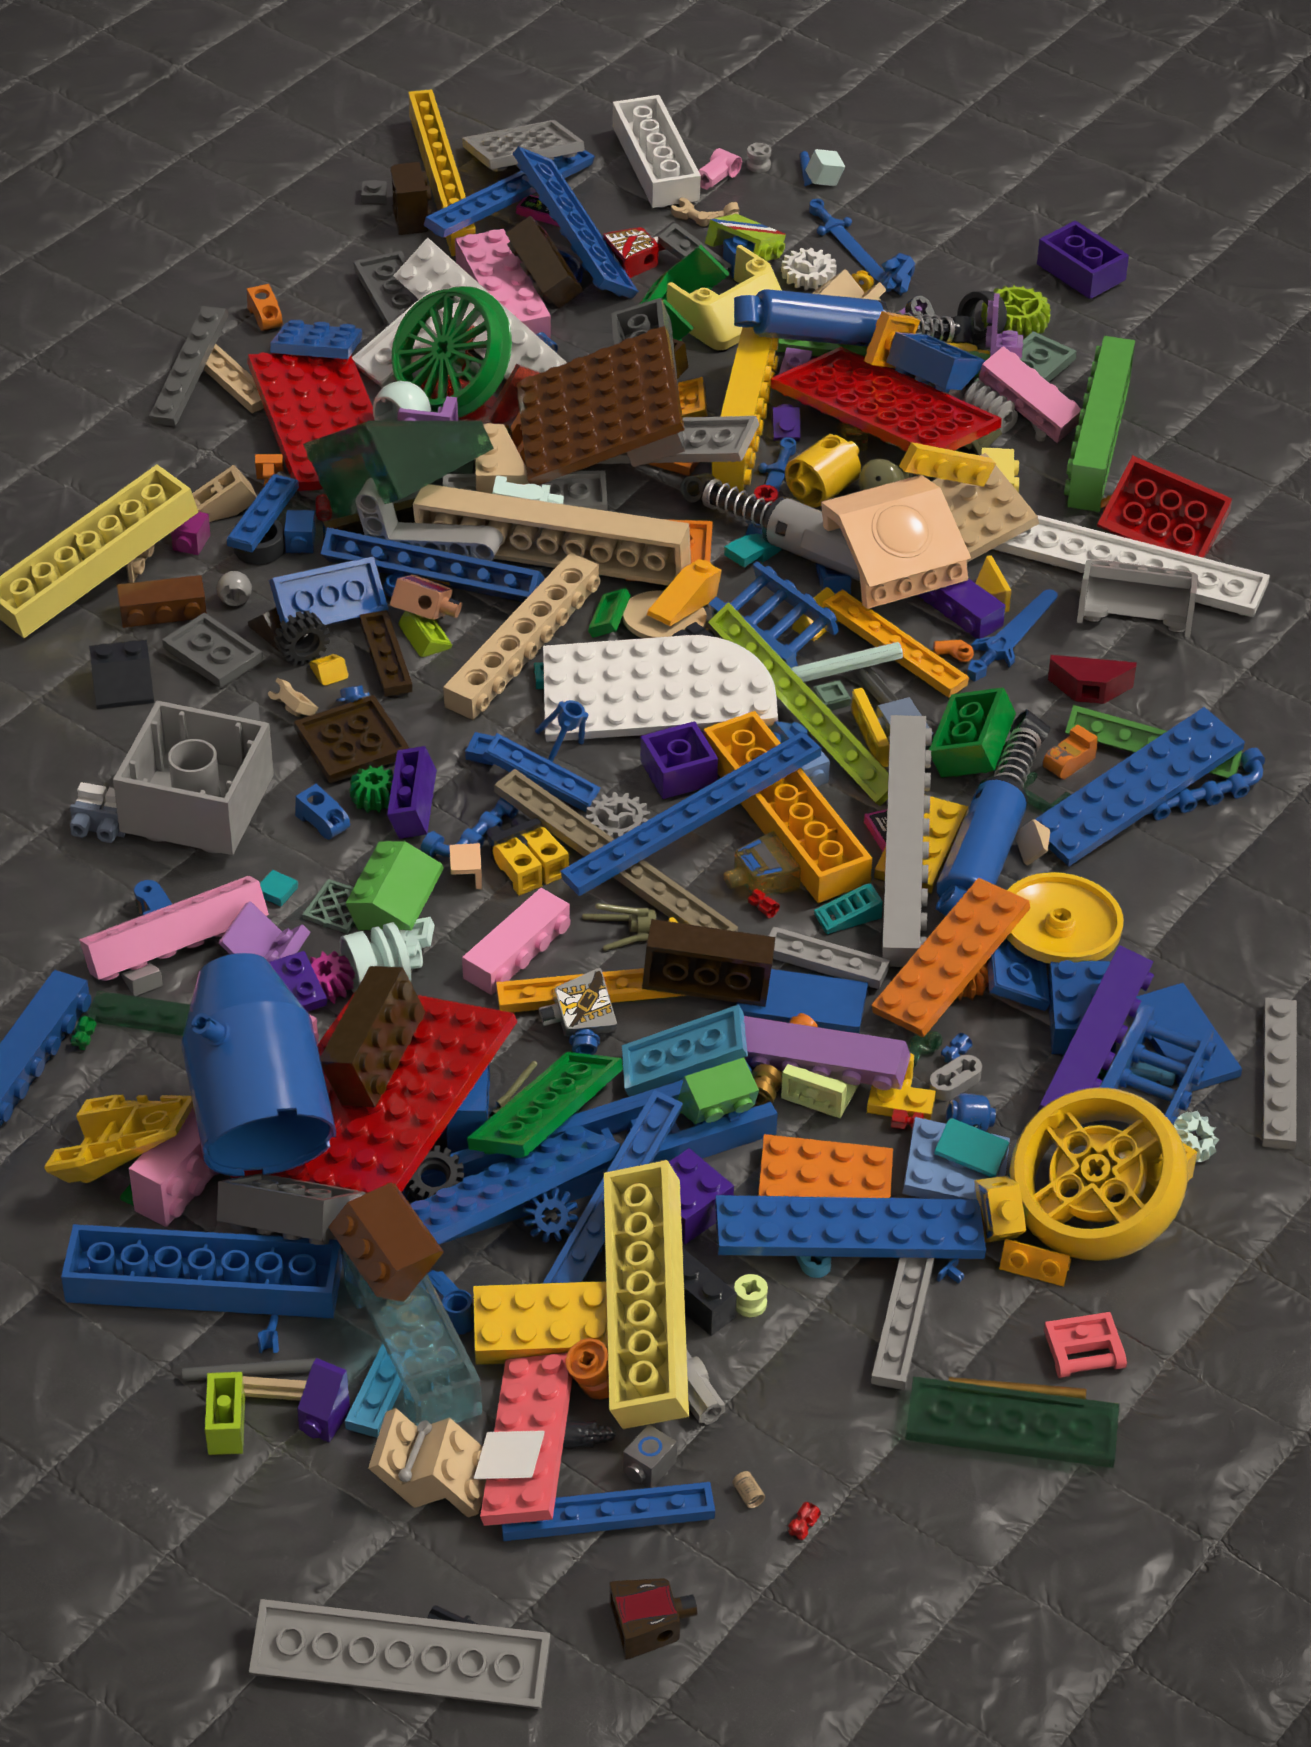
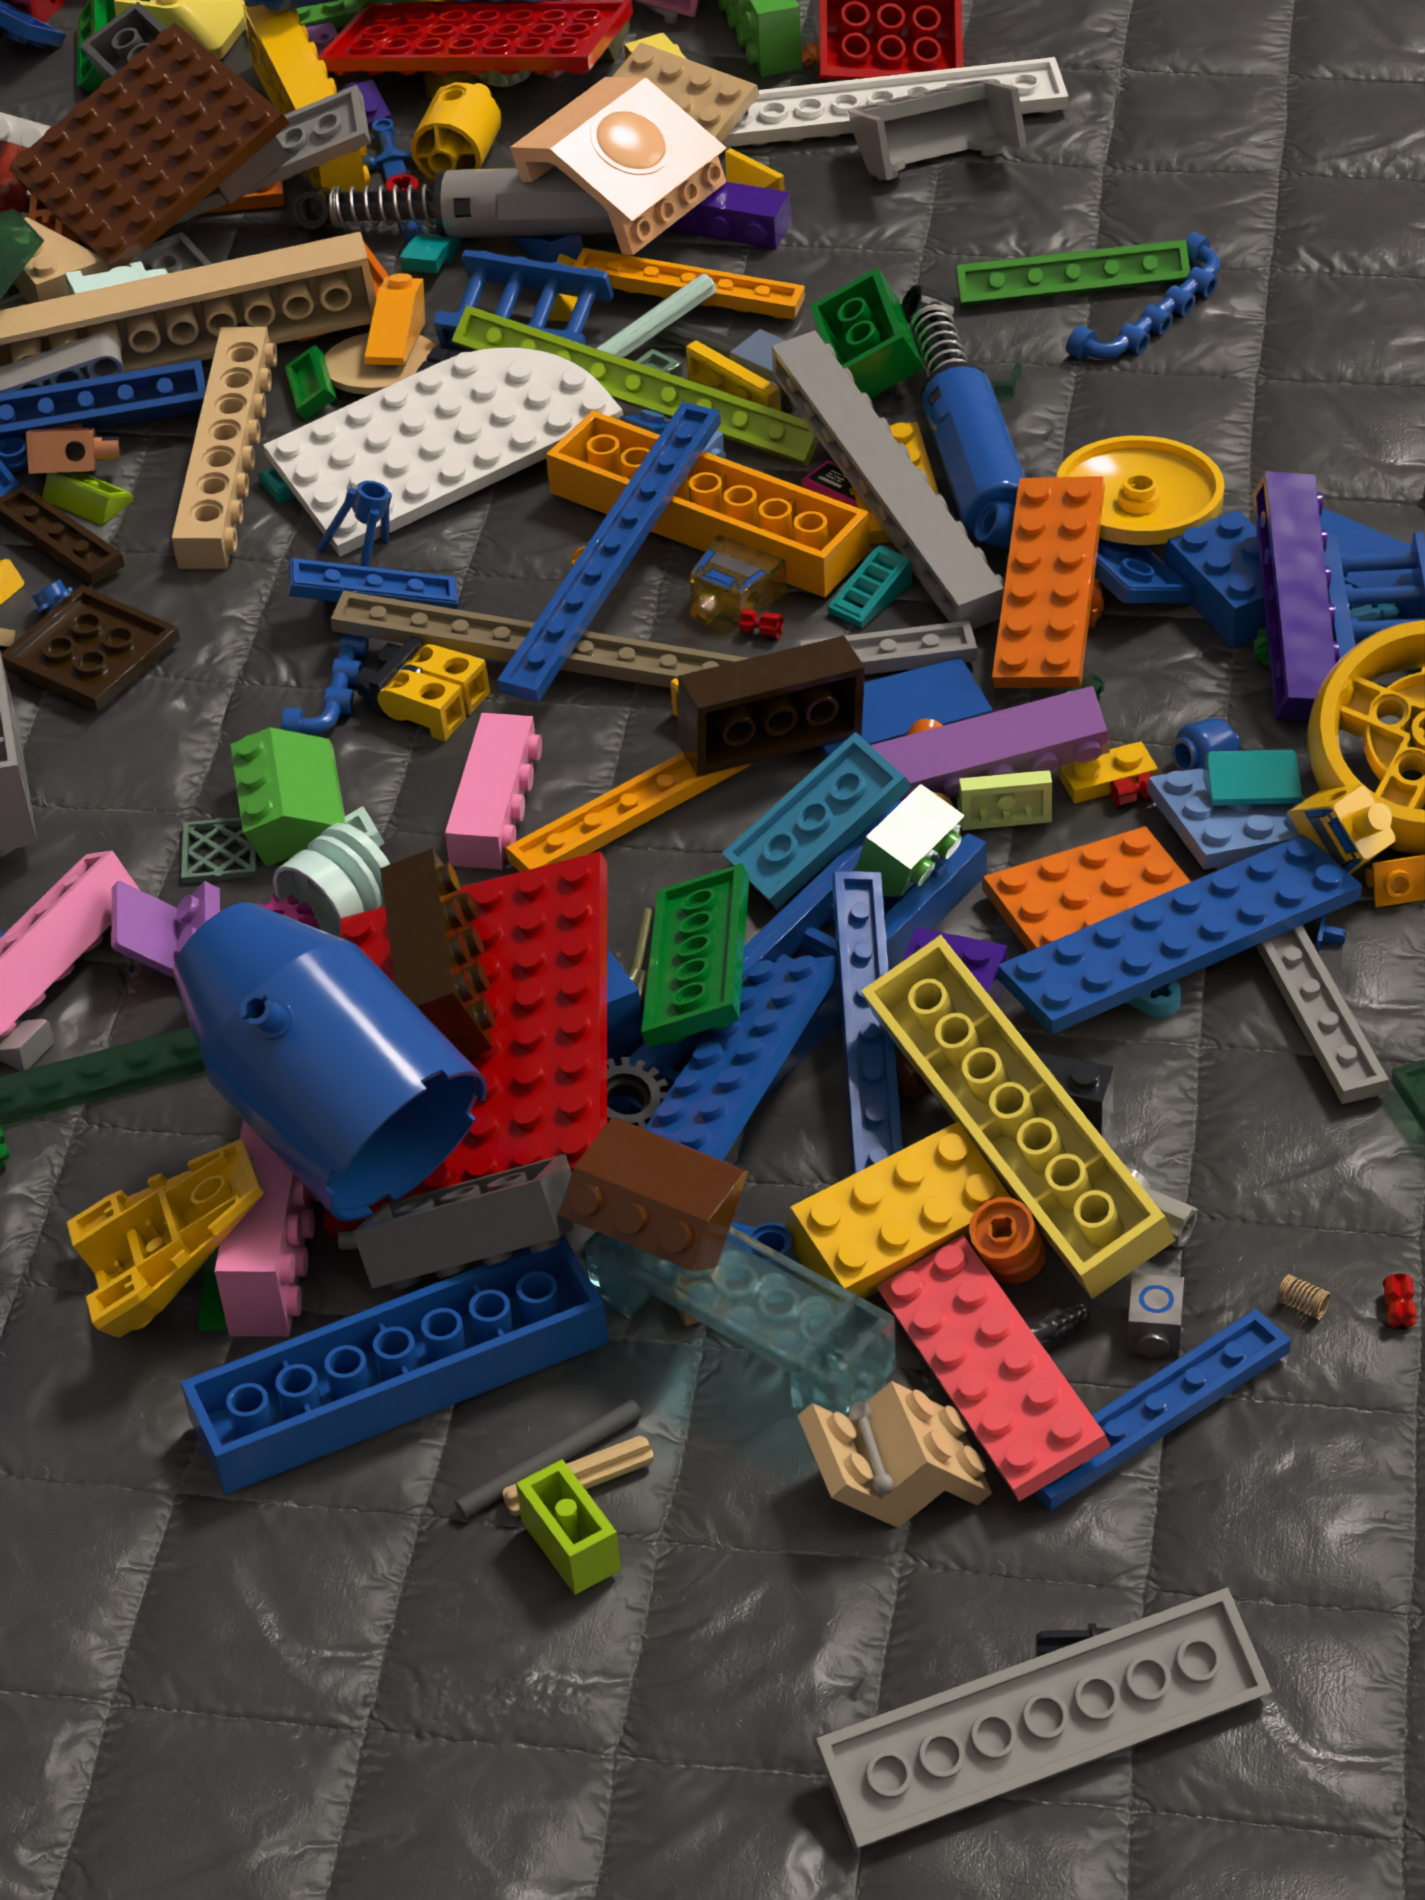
camera: 25 degrees left, 0 degrees up
(269, 1337) = (543, 1405): blue hand -> none
(278, 887) = (132, 855): teal tile -> none
(322, 812) = (117, 746): blue leg -> none
(324, 1401) = (691, 1445): dark purple slope -> none
(371, 788) = (166, 692): green gear -> none
(375, 1396) = (744, 1405): dark azure plate -> none
(412, 792) = (224, 673): dark purple brick -> none
(466, 860) = (355, 723): light nougat panel -> none
(477, 747) = (270, 592): blue plate -> none
(509, 1455) = (993, 1394): white sticker -> none
(550, 1225) = (816, 1086): blue gear -> none
(581, 1005) = (644, 825): torso -> none
(584, 1041) = (671, 868): blue plate -> none
(617, 814) = (508, 594): light grey gear -> none
(638, 919) = (630, 704): olive plant -> none
(648, 1614) = (1309, 1507): torso -> none
(678, 759) = (534, 504): dark purple slope -> none
(756, 1302) = (1127, 1062): yellowish green wheel -> none
(880, 468) = (517, 113): olive hair -> none
(947, 464) = (625, 57): yellow plate -> none
(953, 1075) = (1156, 720): light grey beam -> none
(956, 648) = (761, 265): orange arm -> none
(959, 1044) = (1124, 685): blue piece -> none
(1002, 644) = (809, 235): blue sword -> none
(1032, 841) = (1028, 427): tan slope -> none
(1071, 753) = (989, 318): orange leg -> none
(1091, 678) = (942, 235): dark red slope -> none
(1138, 785) = (1097, 323): blue plate -> none

